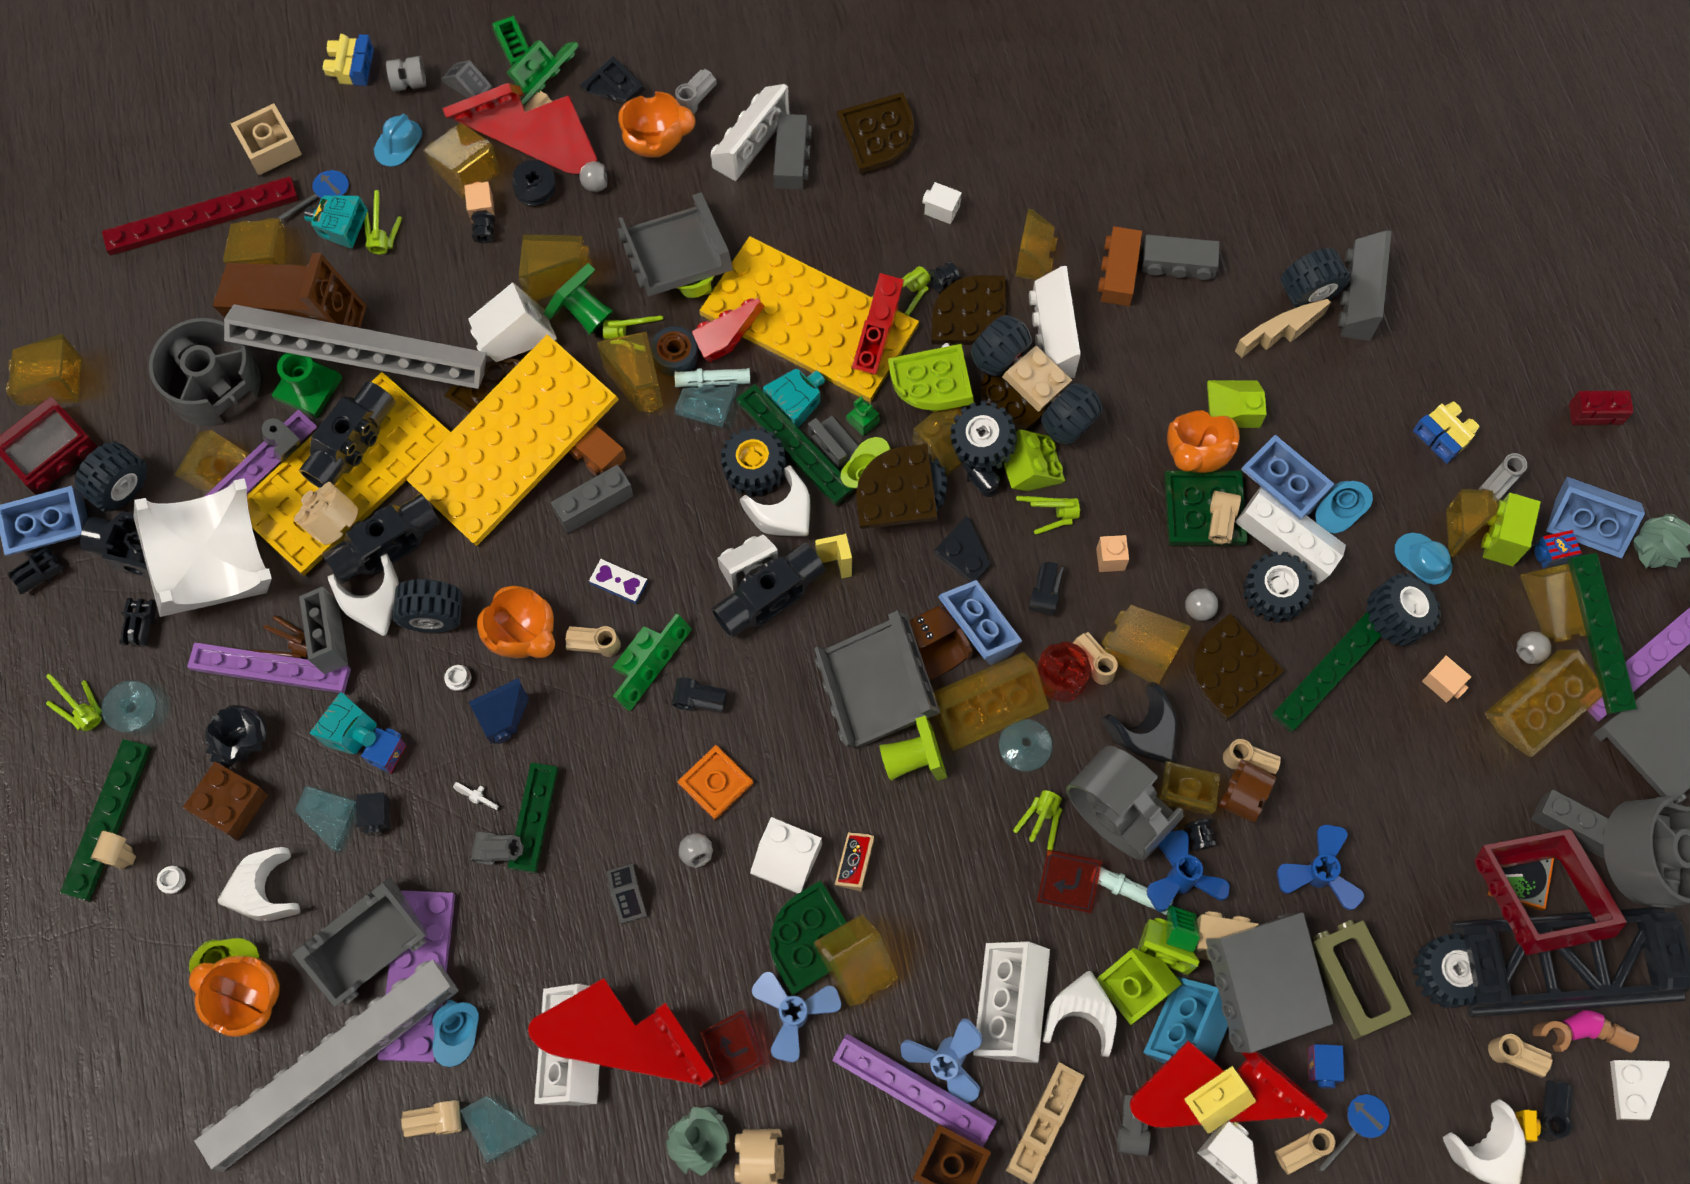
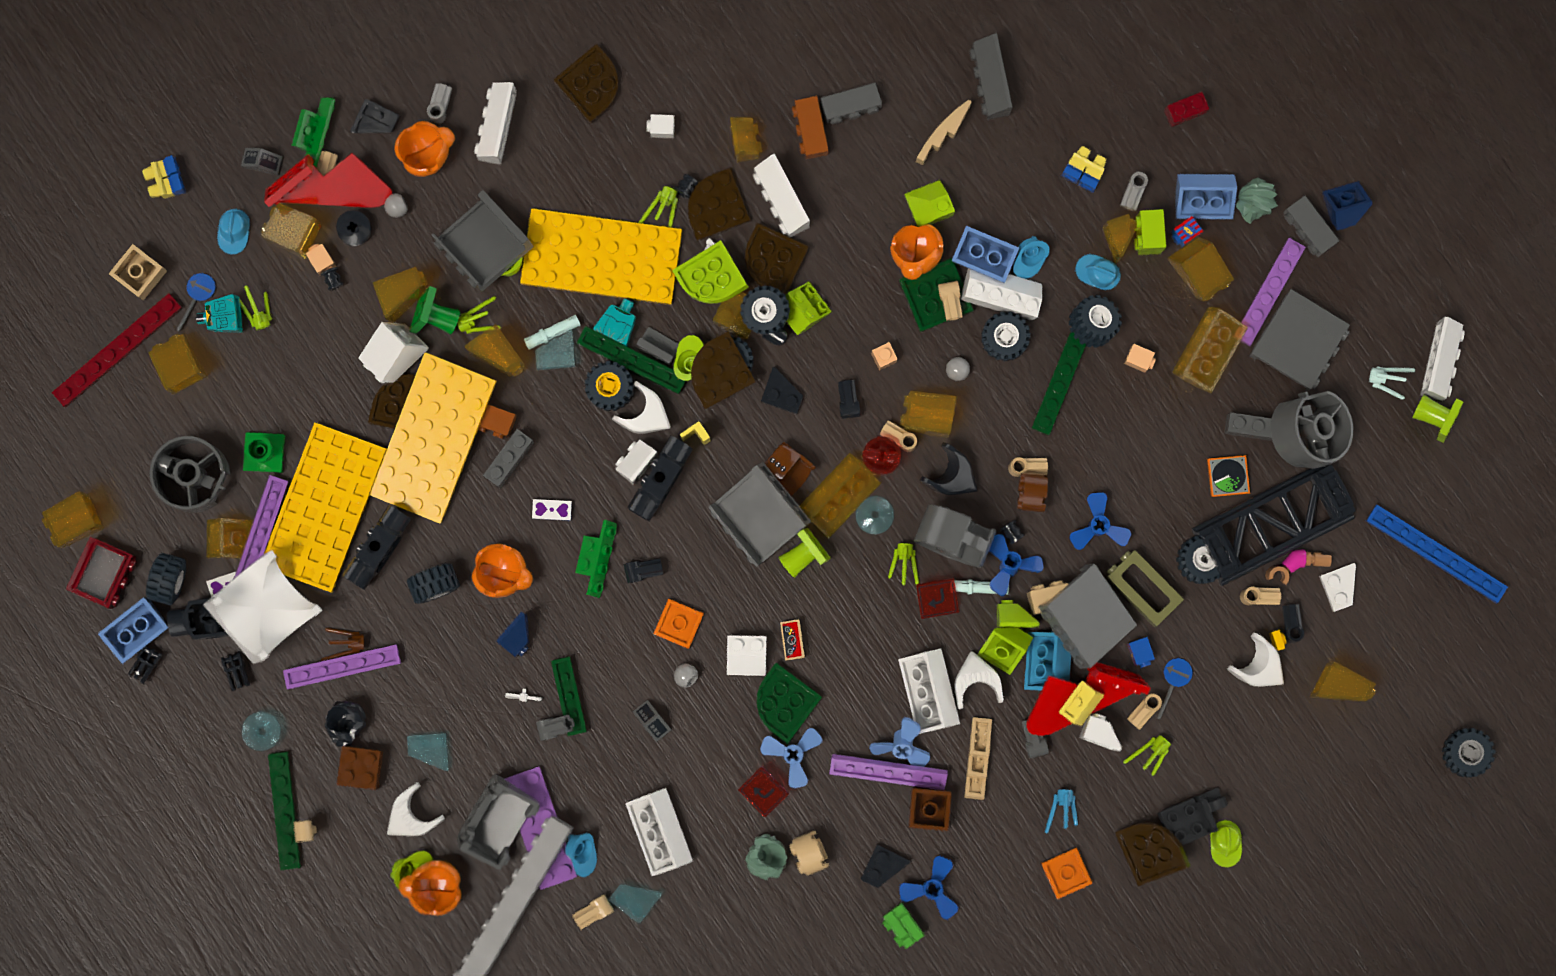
camera: 25 degrees left, 15 degrees up
(85, 716) = (233, 749): lime plant -> none
(171, 880) = (348, 832): white plate -> none
(279, 435) = (270, 502): dark grey leg -> none
(294, 290) = (224, 398): reddish brown brick -> none
(323, 630) = (369, 628): dark grey brick -> none
(326, 513) = (333, 547): tan brick -> none
(344, 726) = (416, 686): teal torso -> none
(346, 434) = (319, 468): black brick -> none
(354, 346) = (293, 417): light grey brick -> none
(373, 609) = (393, 597): white animal -> none
(373, 813) = (461, 736): black brick -> none
(385, 750) = (448, 691): blue brick -> none
(414, 73) = (220, 170): light grey wheel -> none
(457, 678) = (473, 621): white plate -> none
(505, 25) = (269, 101): green slope -> none
(591, 639) = (552, 560): tan piece -> none
(599, 1032) = (677, 817): red piece -> none
(668, 340) = (513, 312): wheel -> none
(724, 333) = (546, 299): slope -> none
(791, 151) = (533, 126): dark grey brick -> none
(857, 960) = (820, 706): clear yellow slope -> none
(863, 416) = (671, 320): green piece -> none
(878, 324) = (656, 249): red slope -> none
(981, 621) = (813, 444): medium blue slope -> none
(1036, 379) = (785, 249): black plate -> none
(1065, 508) = (839, 334): lime plant -> none
(1182, 929) = (1022, 606): green slope -> none
(1189, 788) = (993, 506): clear yellow slope -> none
(1232, 667) = (993, 405): dark brown plate -> none
(1315, 277) = (954, 88): black wheel -> none
(1534, 647) = (1191, 311): light grey piece -> none
(1568, 850) = (1245, 448): dark red piece -> none
(1602, 633) = (1231, 290): dark green plate -> none

